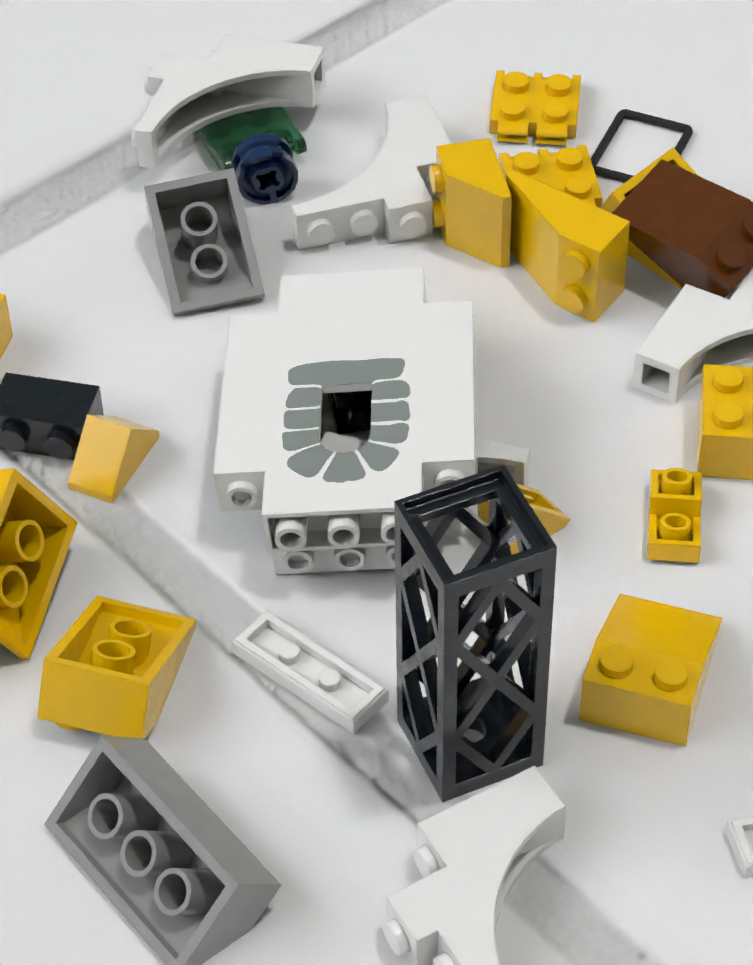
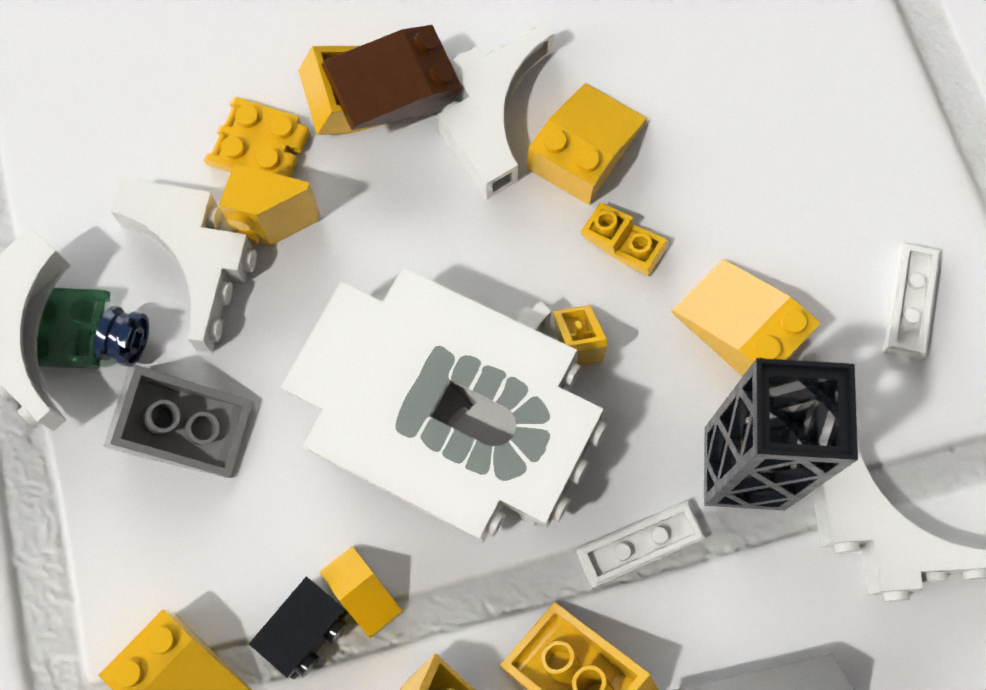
camera: 65 degrees left, 25 degrees up
(535, 107) = (165, 107): yellow plate -> none
(568, 246) = (355, 169): yellow slope -> none
(625, 113) = (227, 39): black piece -> none

